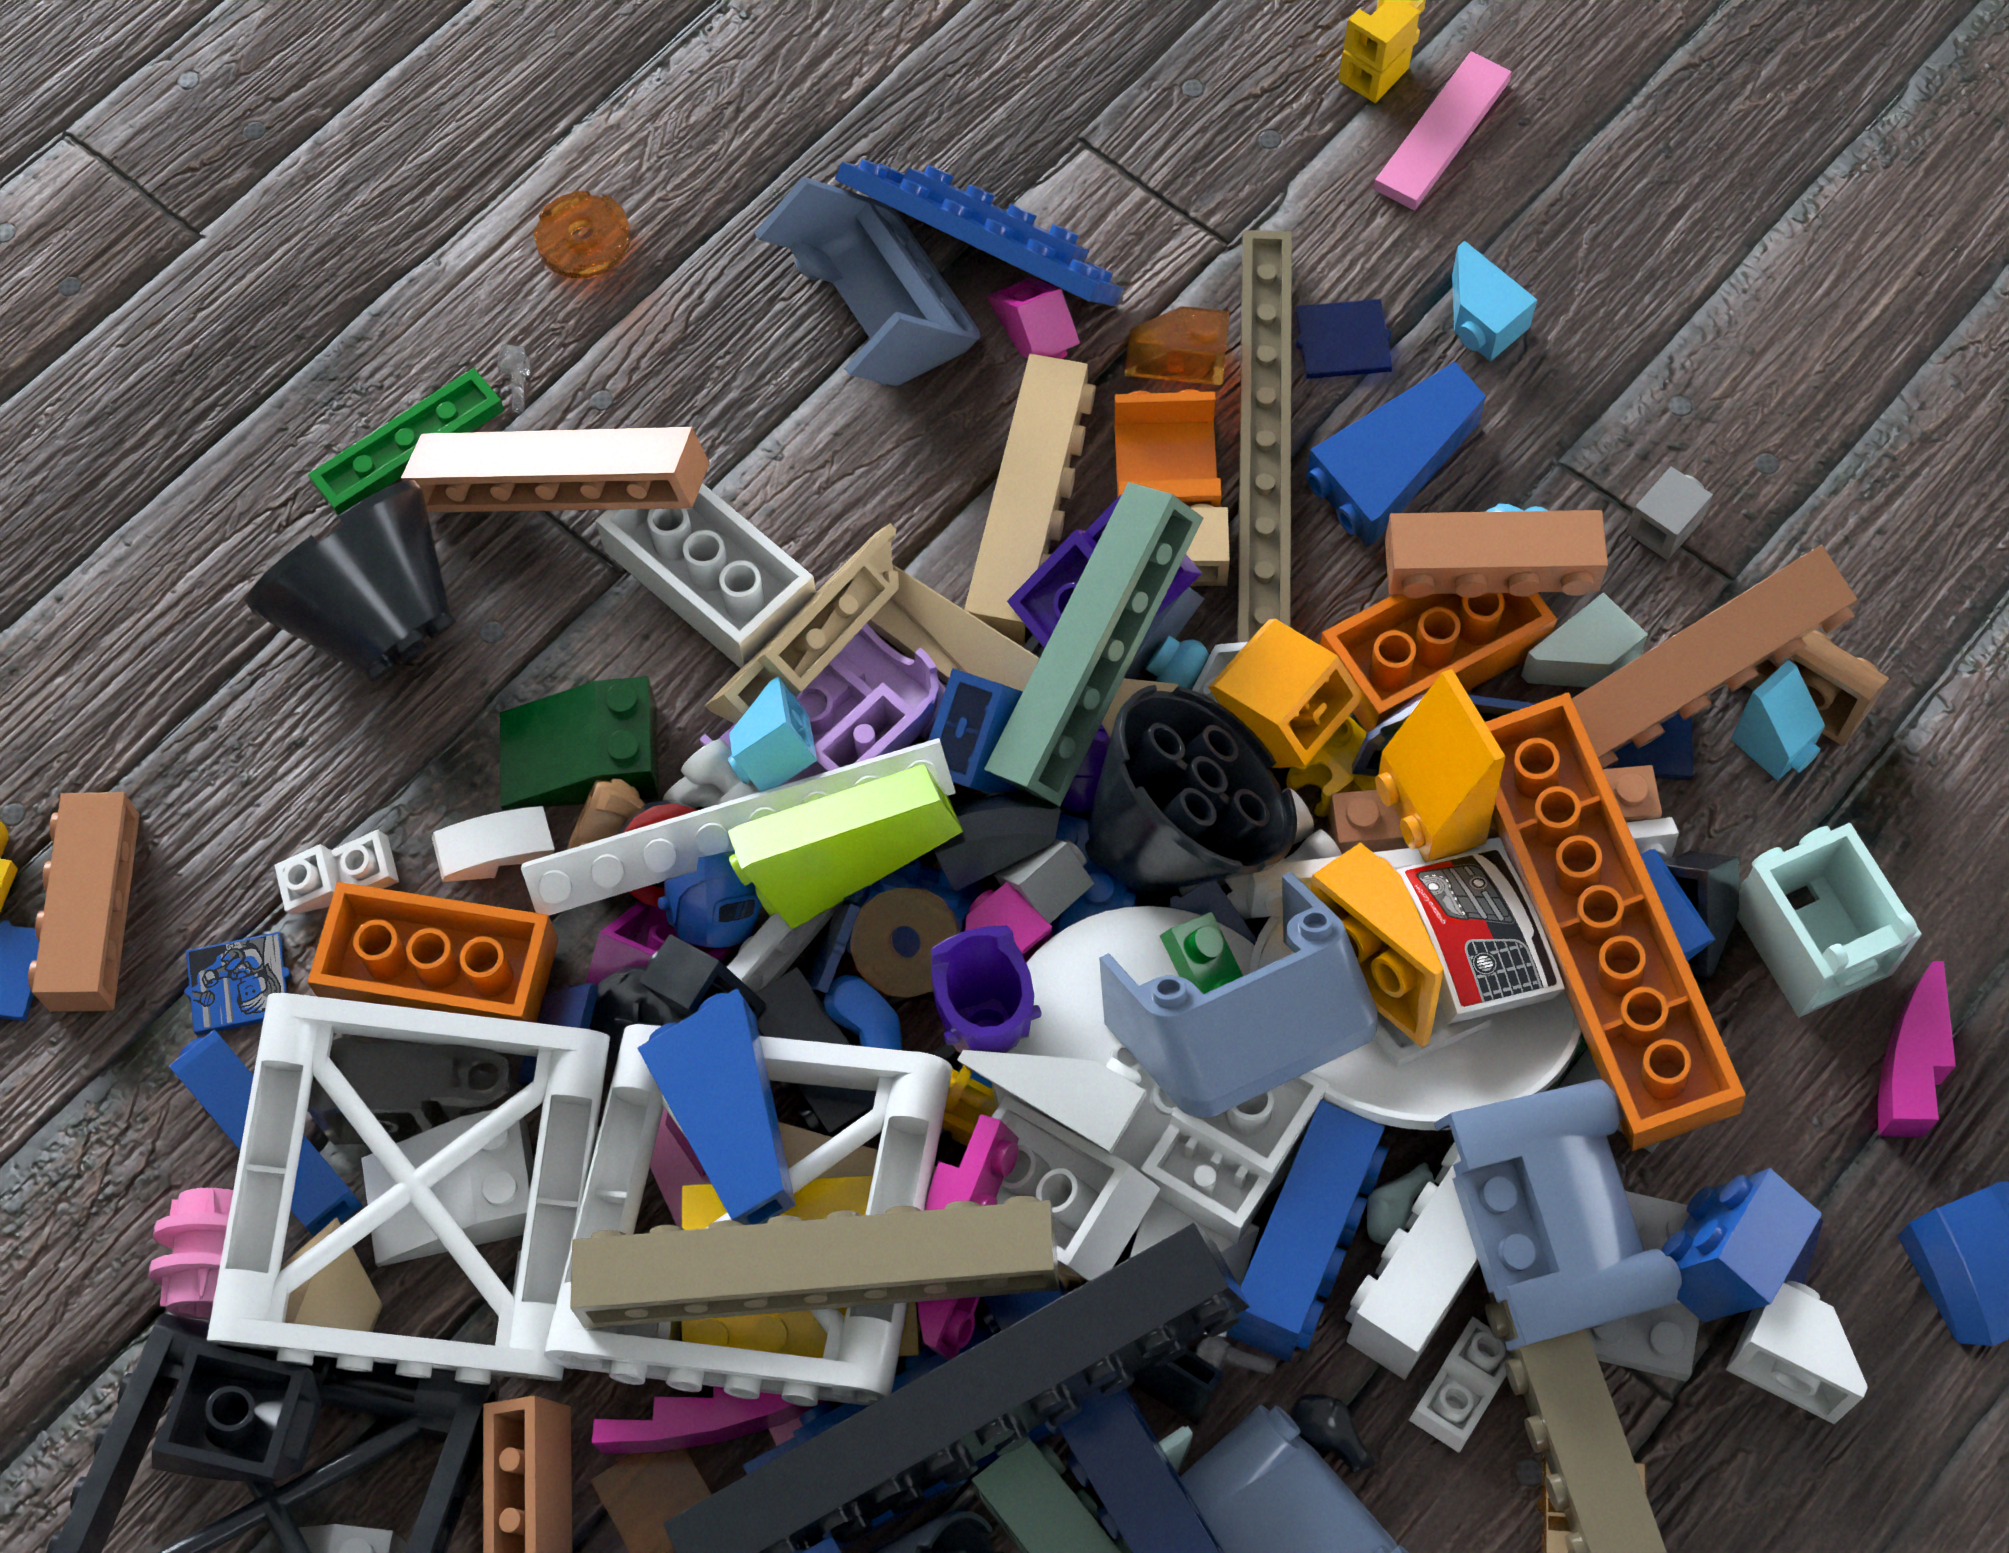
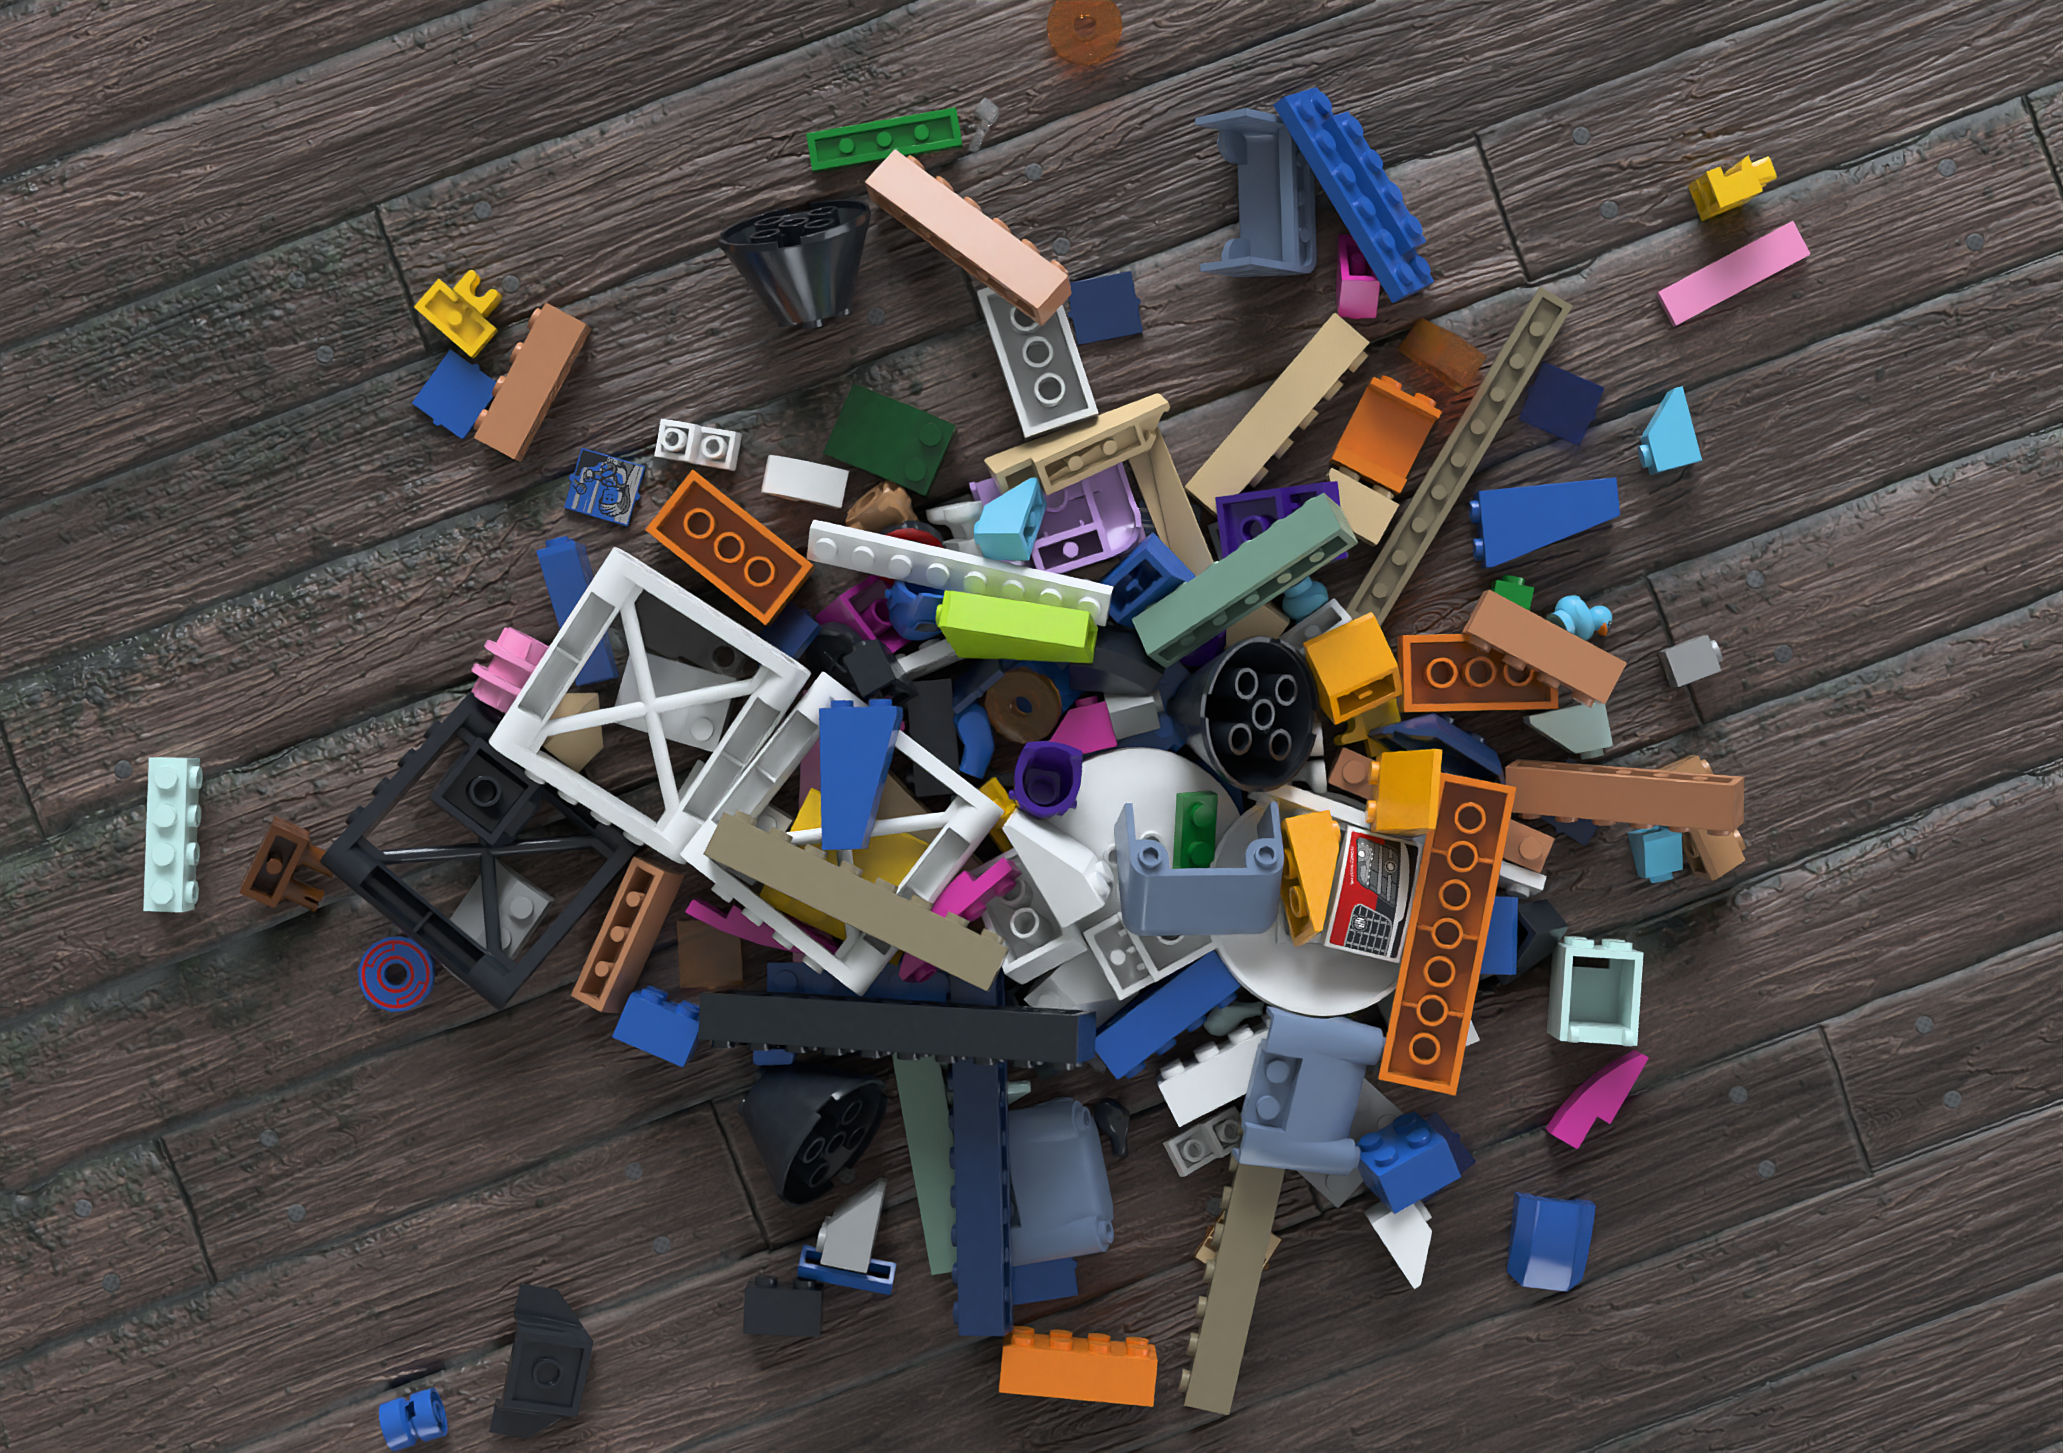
camera: 25 degrees right, 25 degrees up
(766, 488) = (1104, 308): none -> dark blue piece

